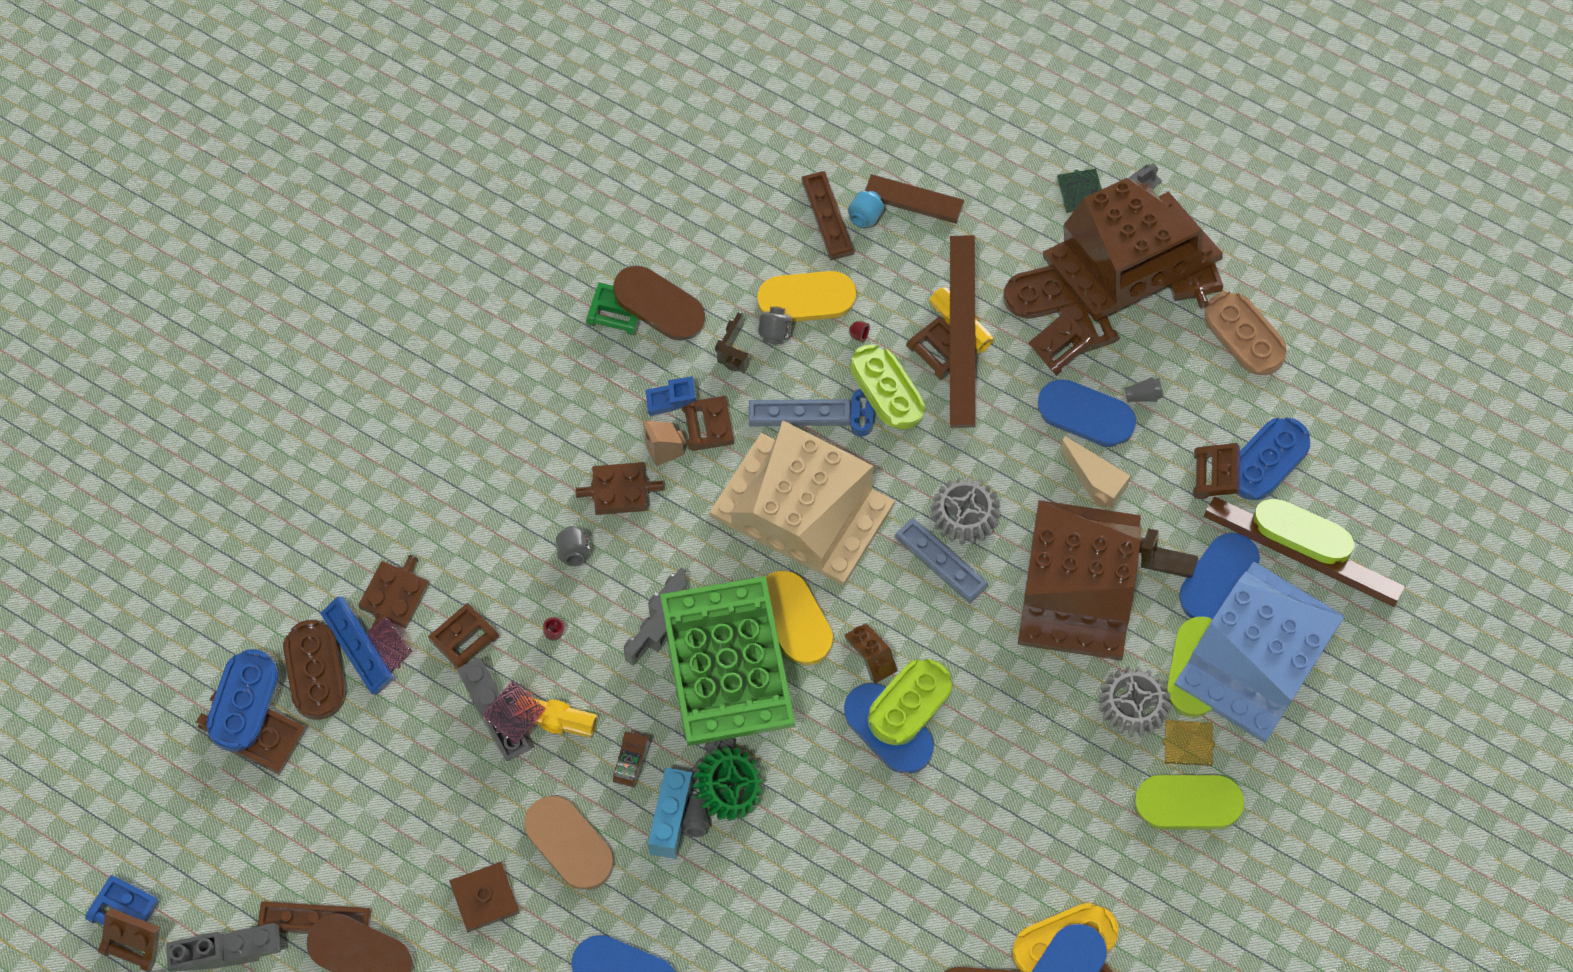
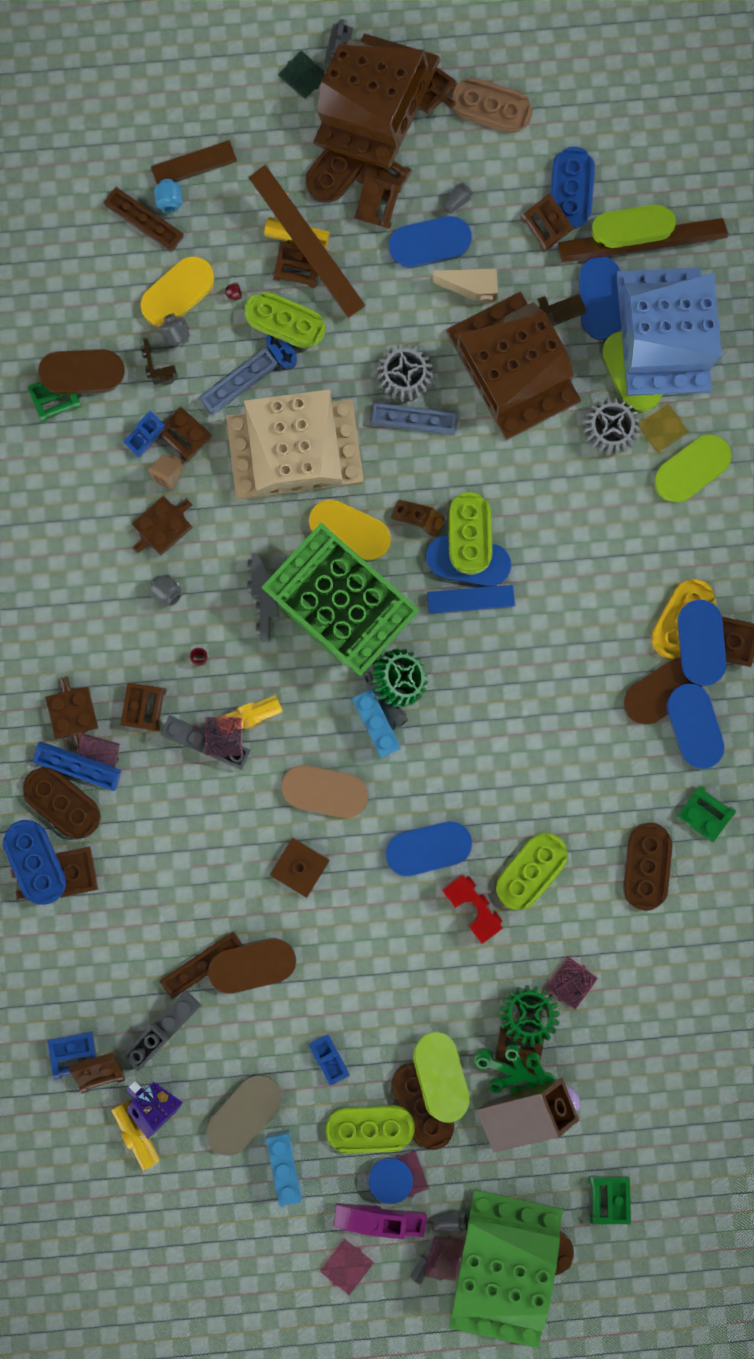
camera: 40 degrees left, 20 degrees up
(631, 759) = (321, 708): reddish brown leg -> none
(861, 766) = (471, 599): none -> blue tile

